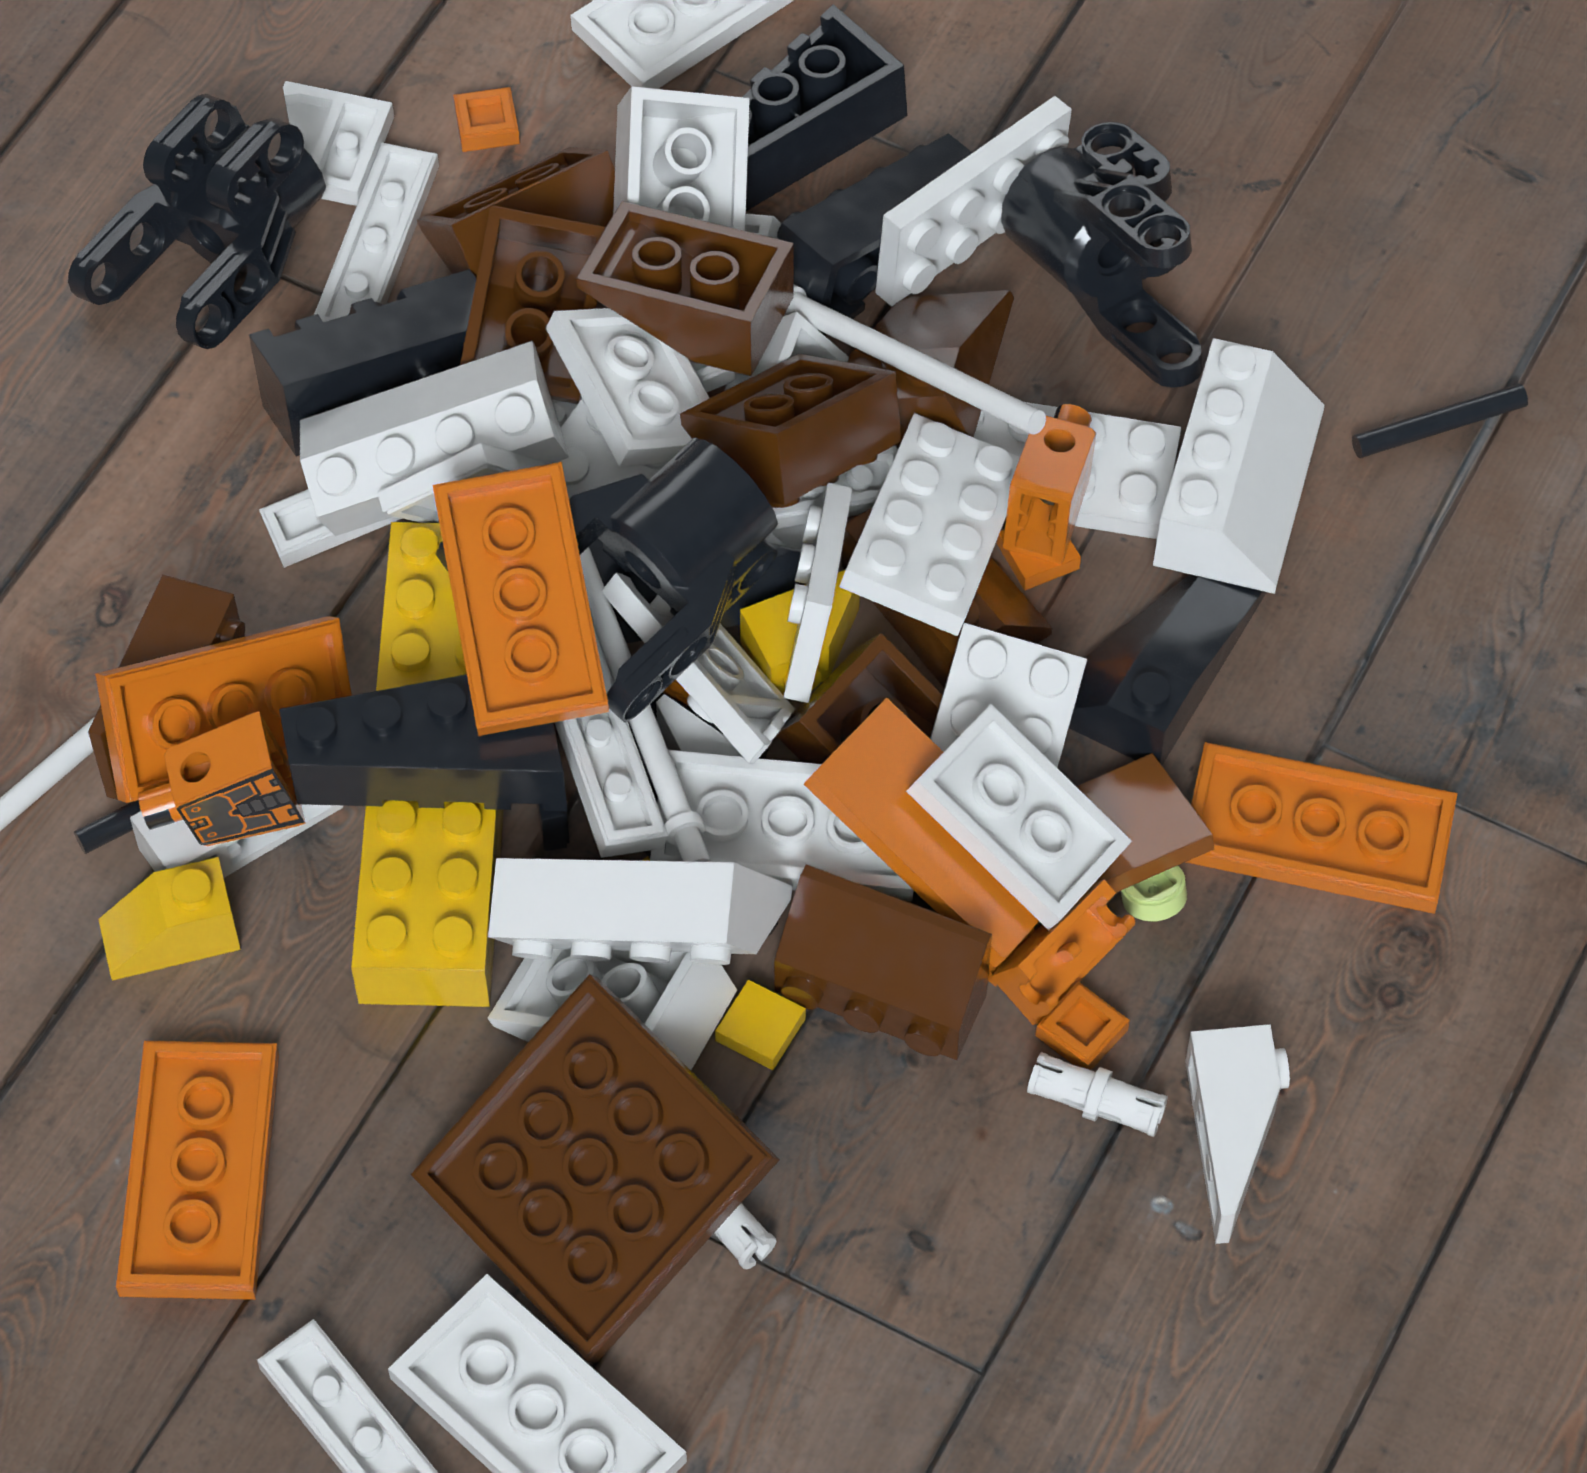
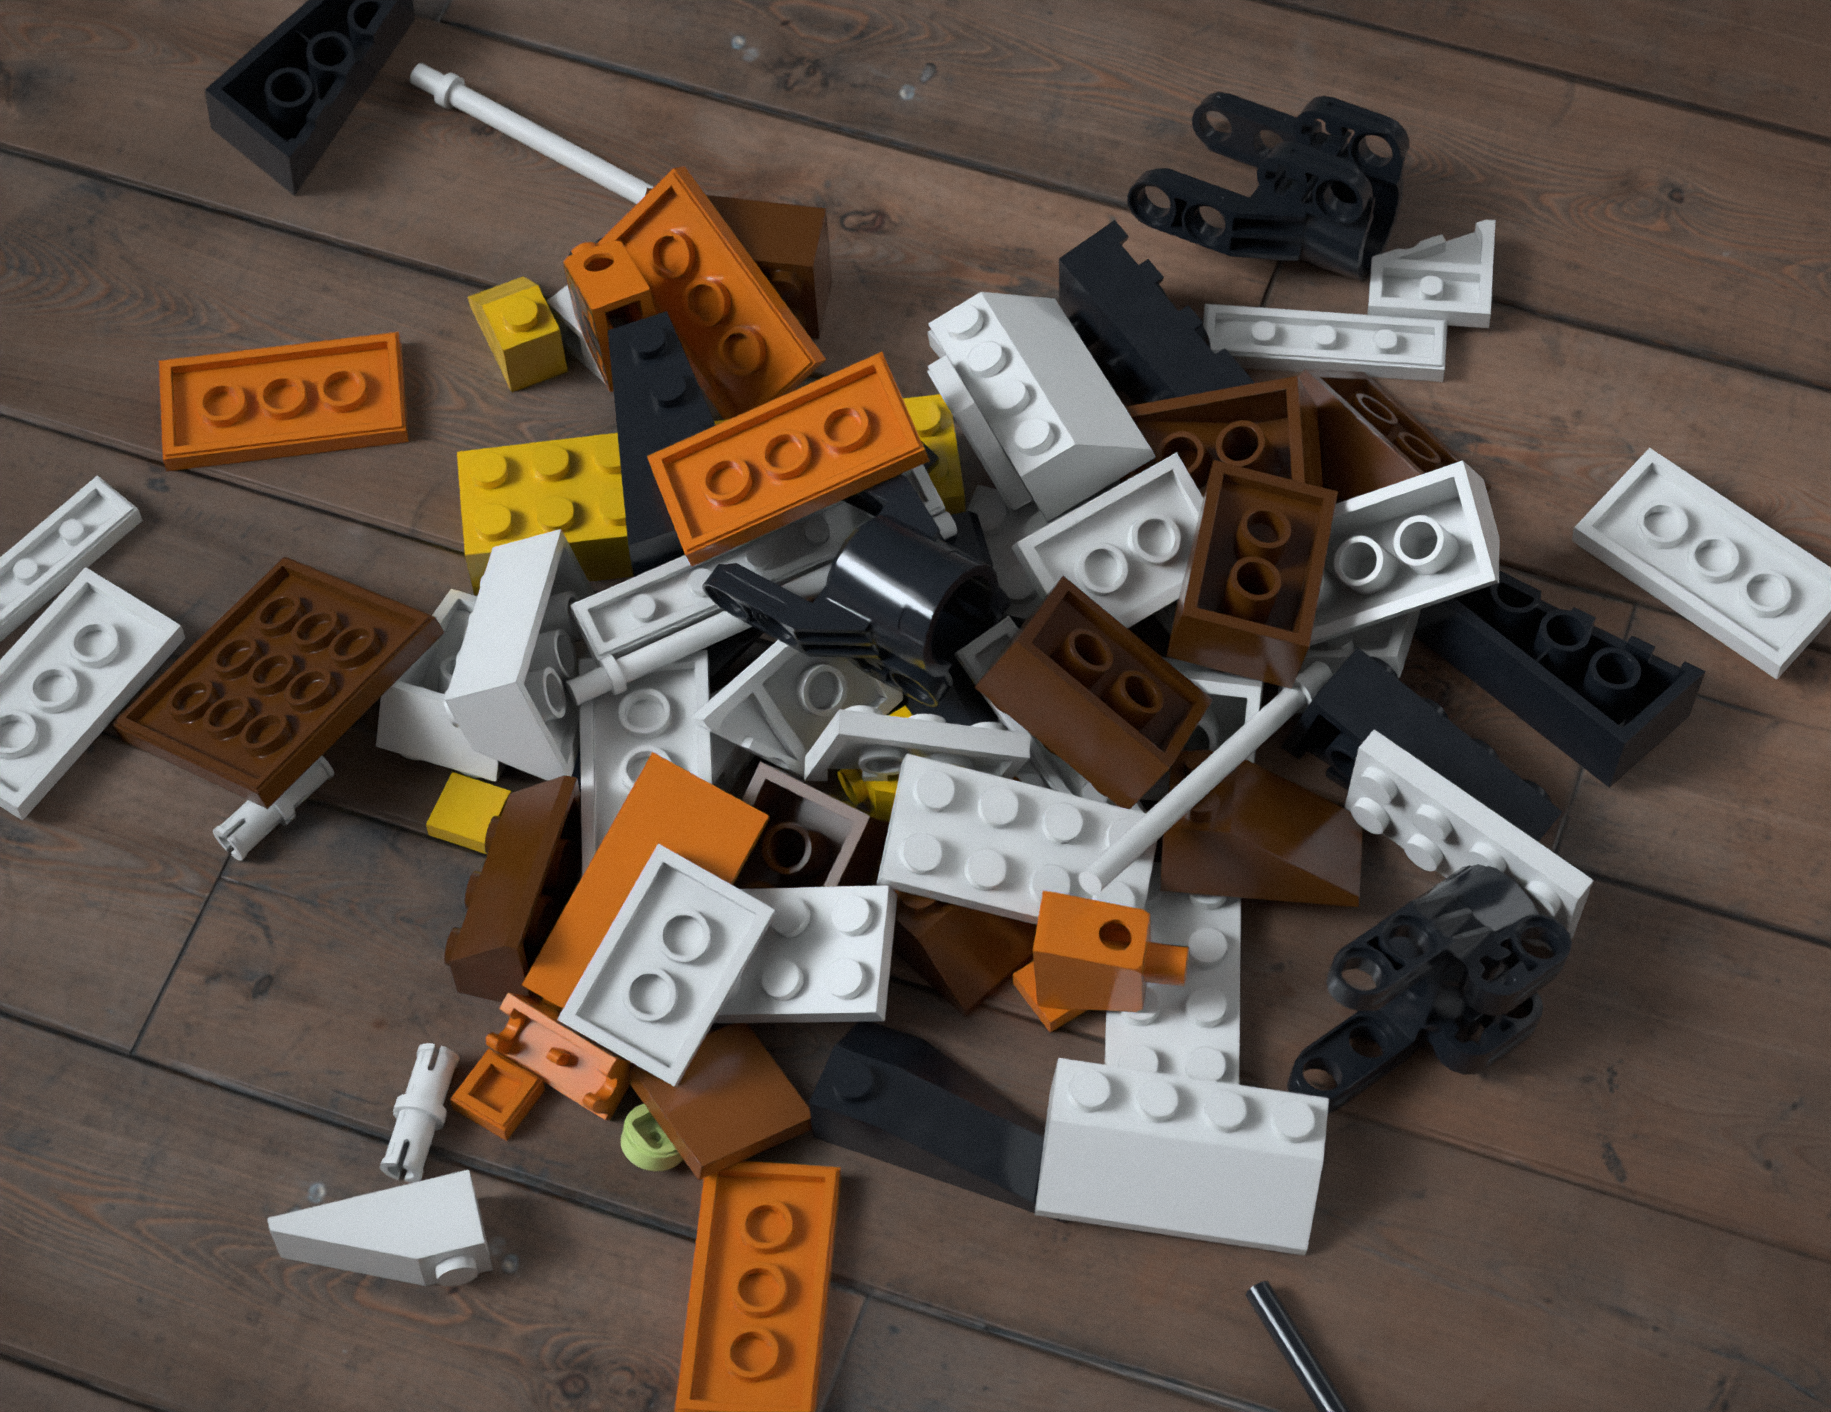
camera: 85 degrees right, 0 degrees up
(486, 119) = (1508, 408): orange tile -> none

